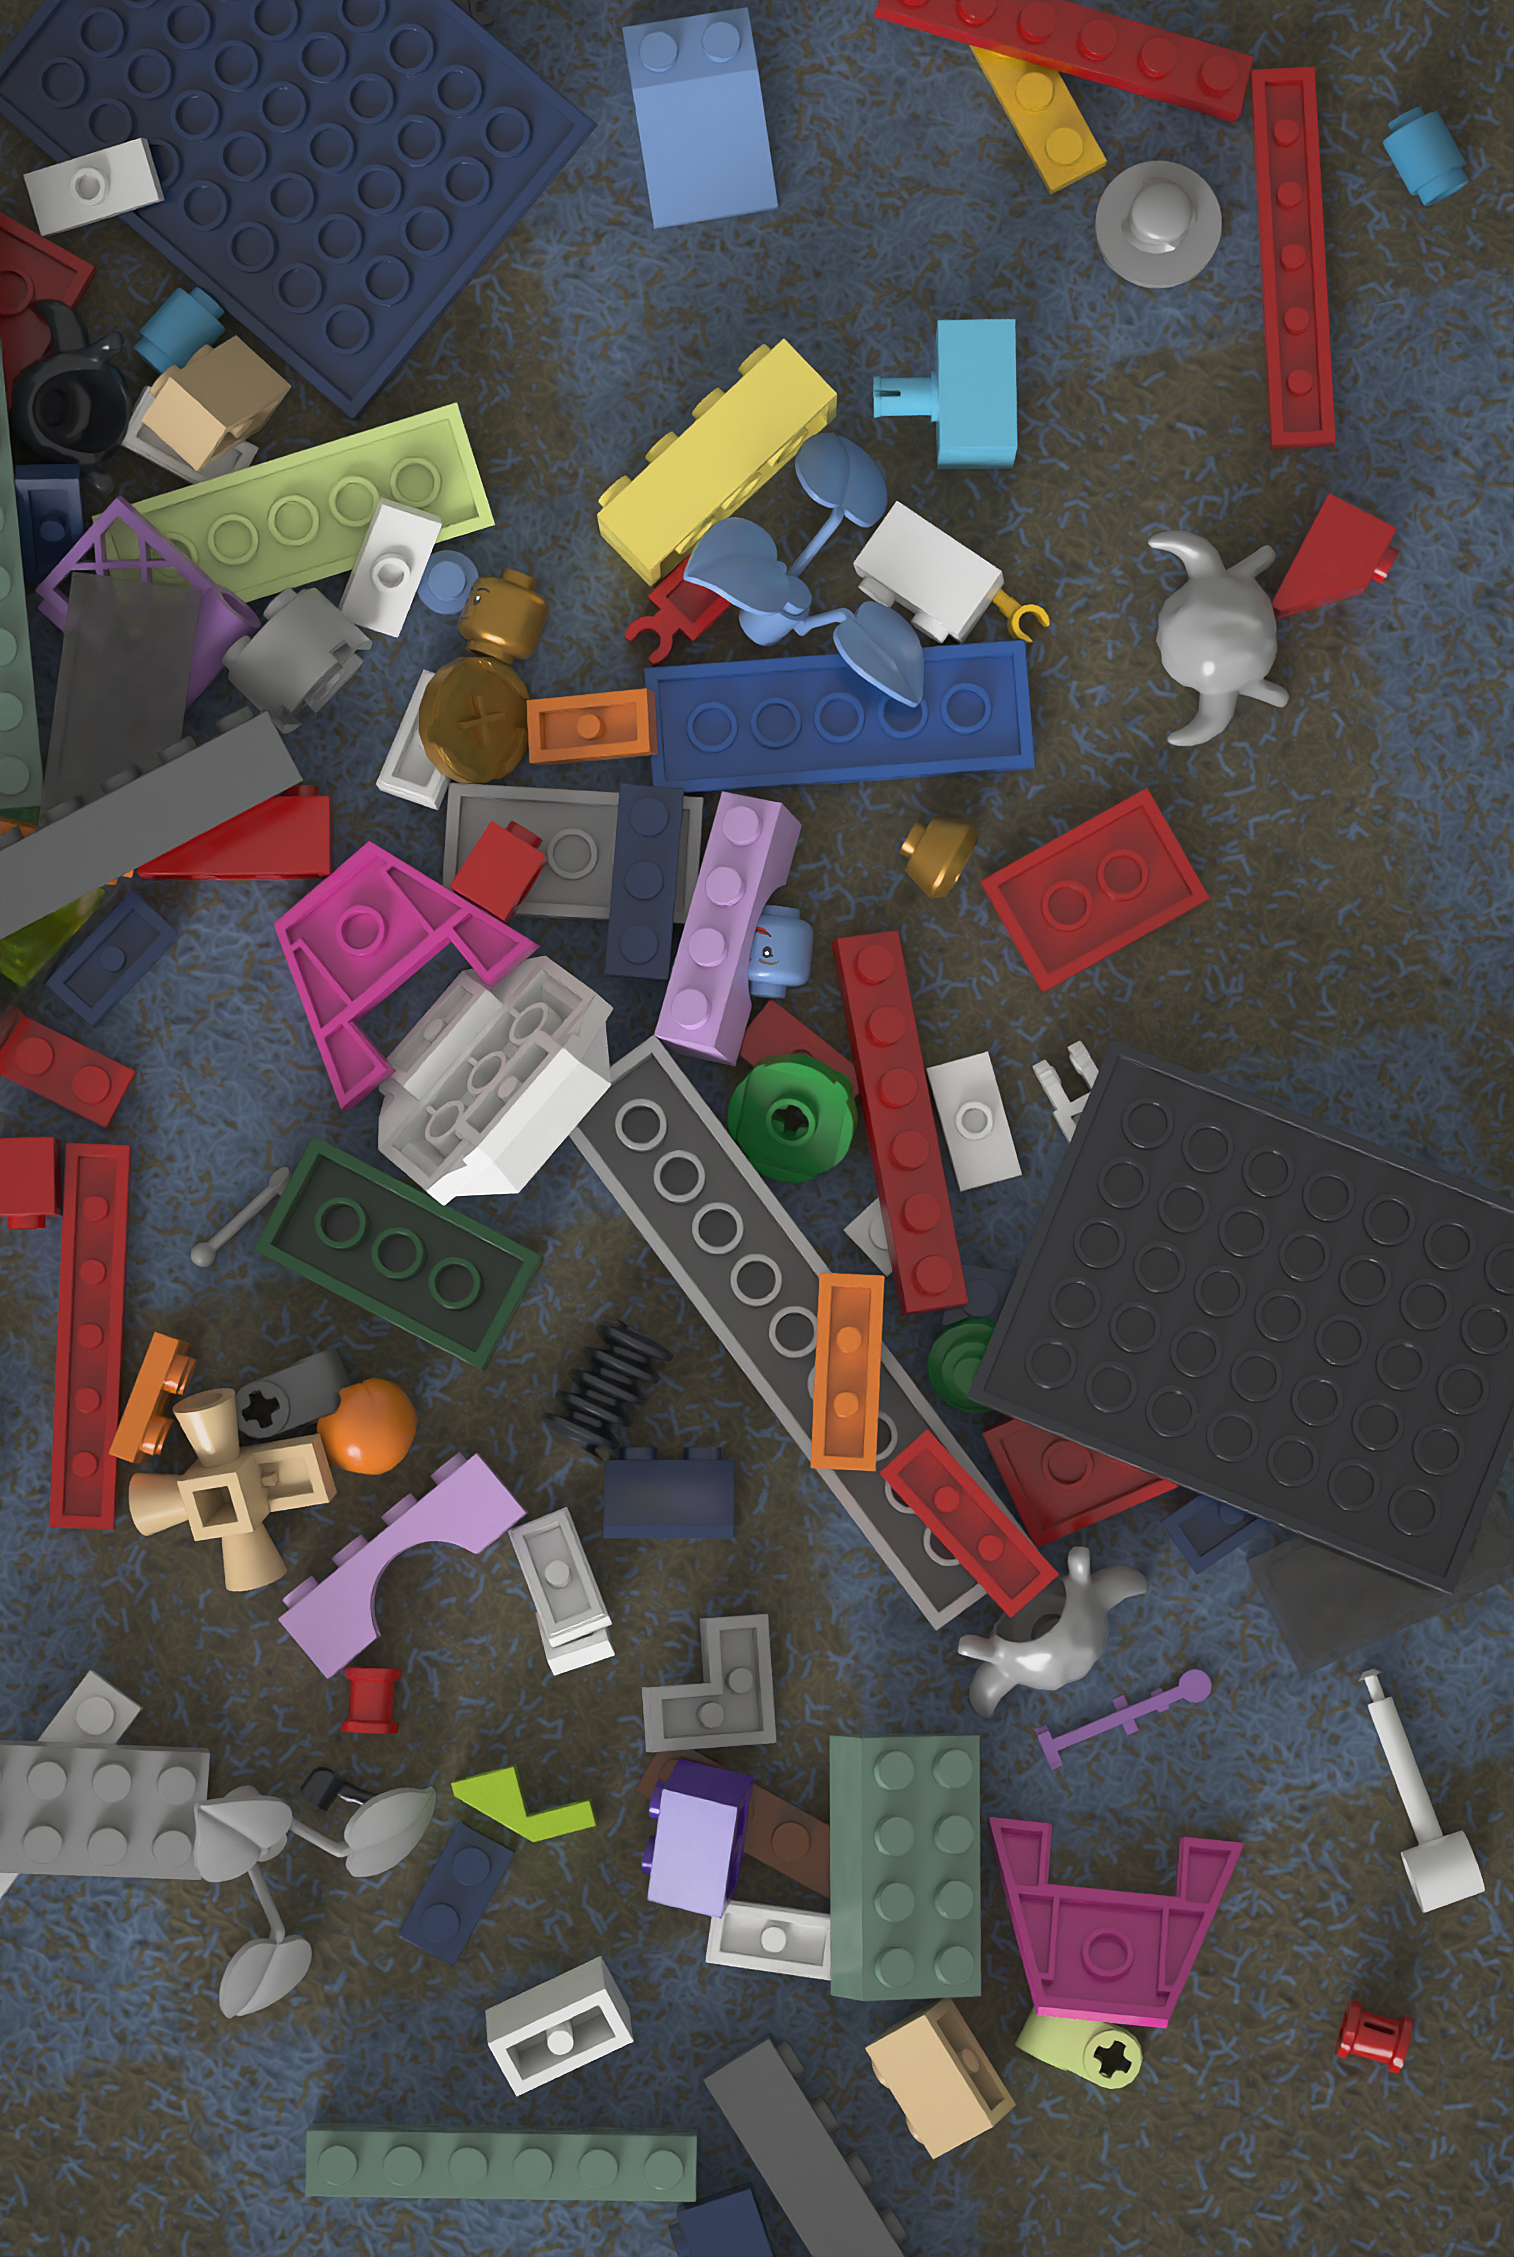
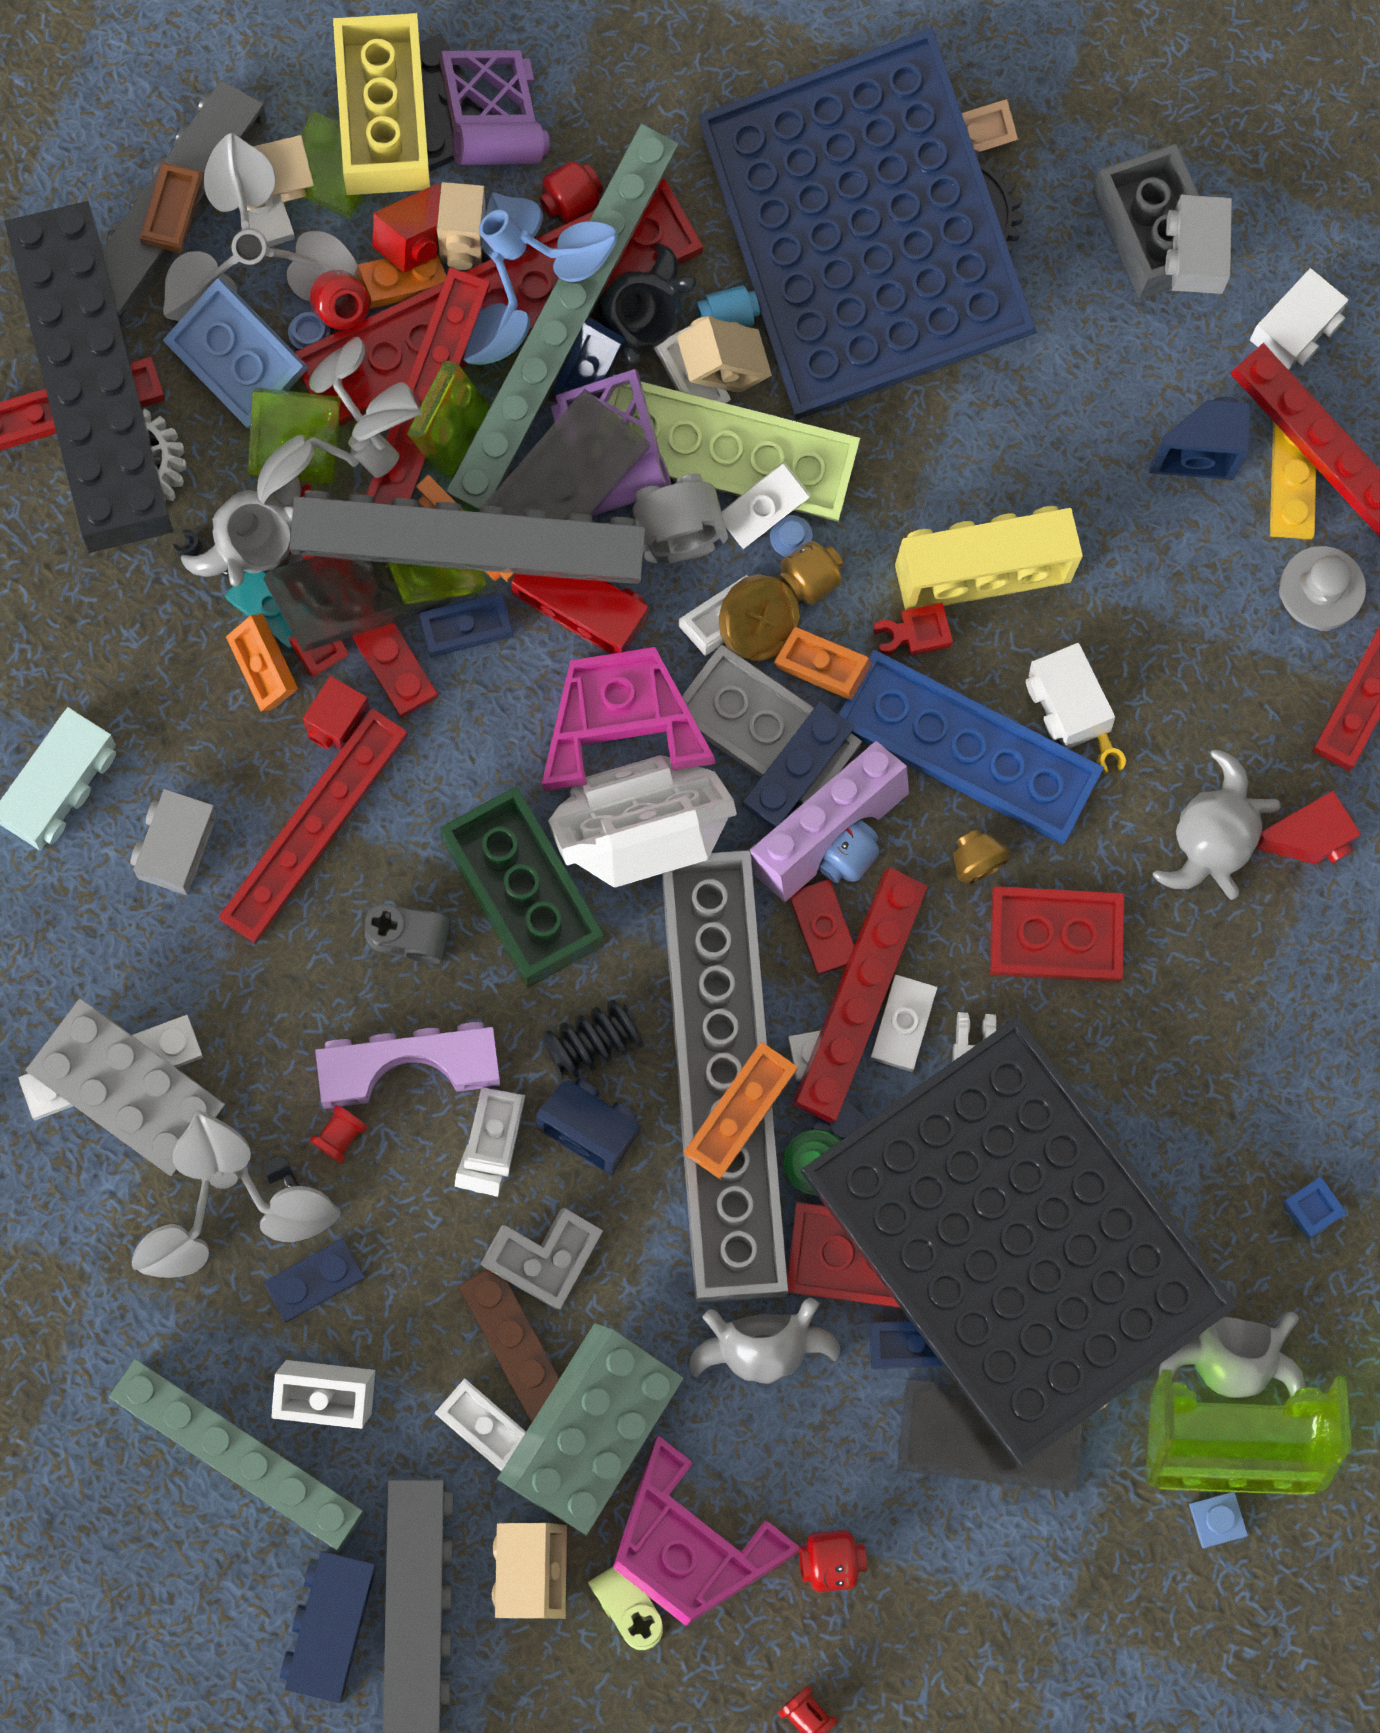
camera: 20 degrees right, 10 degrees down
(94, 187) = (730, 203): white plate -> none
(144, 1425) = (337, 869): orange plate -> none
(204, 1253) = (409, 821): light grey hinge -> none
(232, 1488) = (338, 959): tan brick -> none
(369, 1428) = (439, 974): orange hair -> none
(501, 870) = (720, 706): red brick -> none
(502, 1798) = (378, 1237): lime slope -> none
(698, 1837) = (477, 1333): brick -> none
(700, 117) = (1096, 371): medium blue slope -> none
(742, 567) = (970, 616): medium blue plant -> none
(819, 1093) = (824, 945): green plate -> none
(901, 127) = (1206, 442): none -> dark blue slope
(967, 394) = (1155, 608): medium azure brick -> none
(968, 1523) = (757, 1243): red plate -> none
(1193, 1686) = (828, 1435): medium lavender piece -> none
(1290, 1837) = (832, 1561): none -> red head
(1440, 1866) = (911, 1636): white piece -> none

